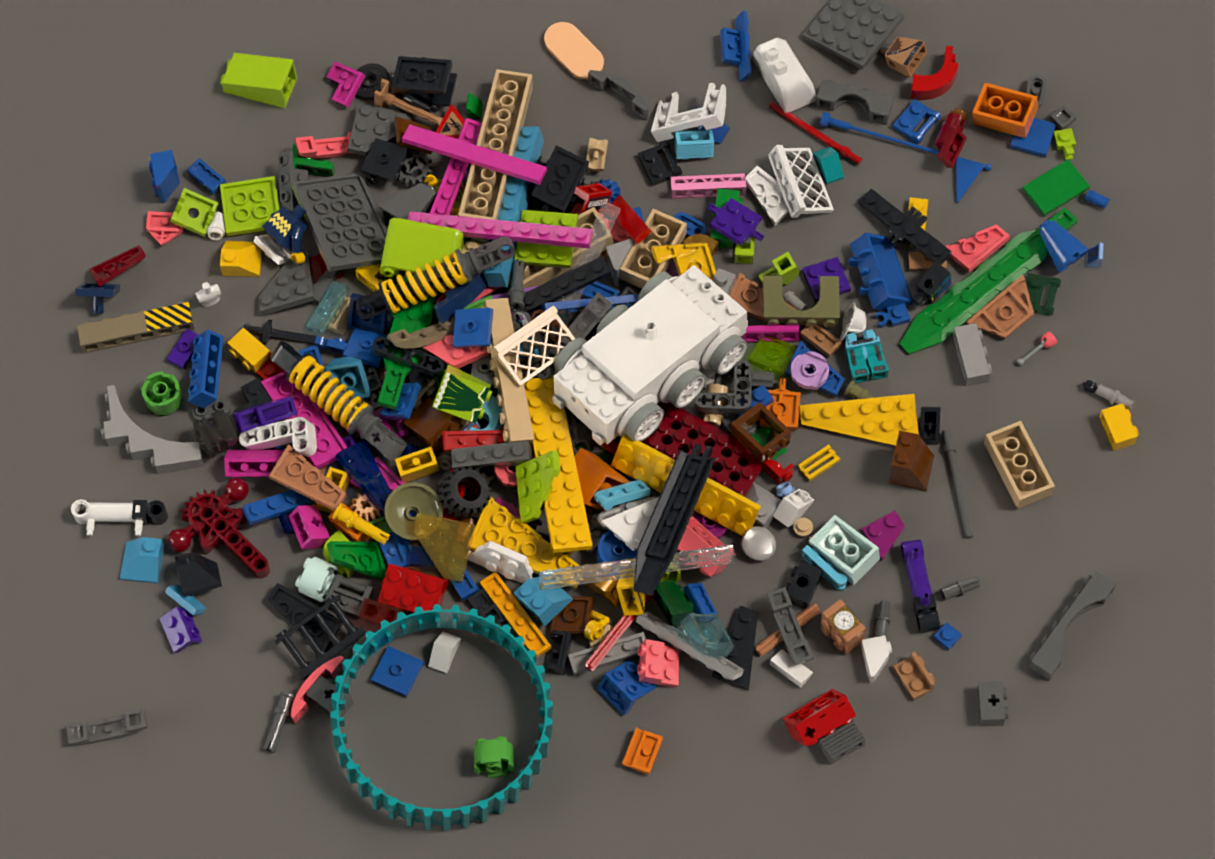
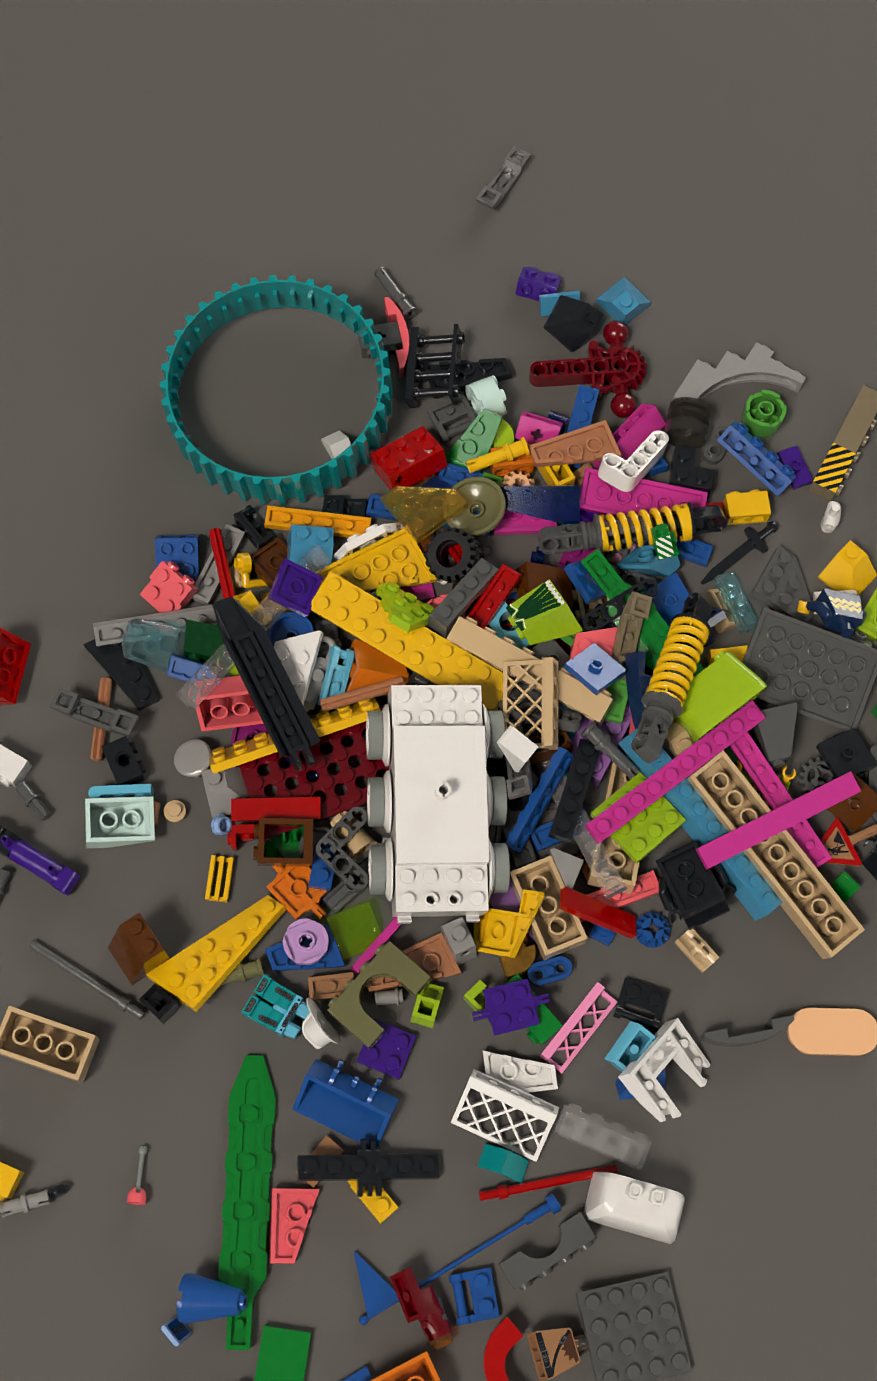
camera: 125 degrees right, 5 degrees up
(138, 512) = (670, 322): white piece -> none
(265, 413) = (669, 462): dark purple slope -> none
(334, 364) = (664, 541): none -> green brick
(337, 345) = (693, 577): blue plate -> none
(378, 611) = (410, 420): clear red brick -> none
(397, 671) = (354, 405): blue plate -> none
(417, 465) = (519, 547): yellow brick -> none
(493, 757) = (213, 407): bright green brick -> none
(575, 321) = (516, 747): none -> white slope
(587, 561) = (295, 587): none -> dark purple plate
(593, 195) = (650, 901): red panel -> none
(618, 465) = (359, 694): none -> nougat axle
(642, 751) = (113, 522): orange plate -> none
(736, 46) = (708, 1189): blue bracket -> none
(744, 458) = (288, 807): none -> red tile
(761, 119) = (602, 1137): none -> clear brick
(784, 664) = (76, 685): white slope -> none
(793, 507) = (198, 817): white slope -> none
(842, 627) = (52, 754): nougat brick -> none
(884, 532) = (105, 874): magenta wing -> none
(895, 315) = (293, 1078): blue plate -> none
(932, 285) = (286, 1142): black torso -> none
(972, 354) = (189, 1109): light grey brick -> none
(1005, 311) = (199, 1183): nougat wing -> none
(1035, 286) = (196, 1232): clear green plate -> none

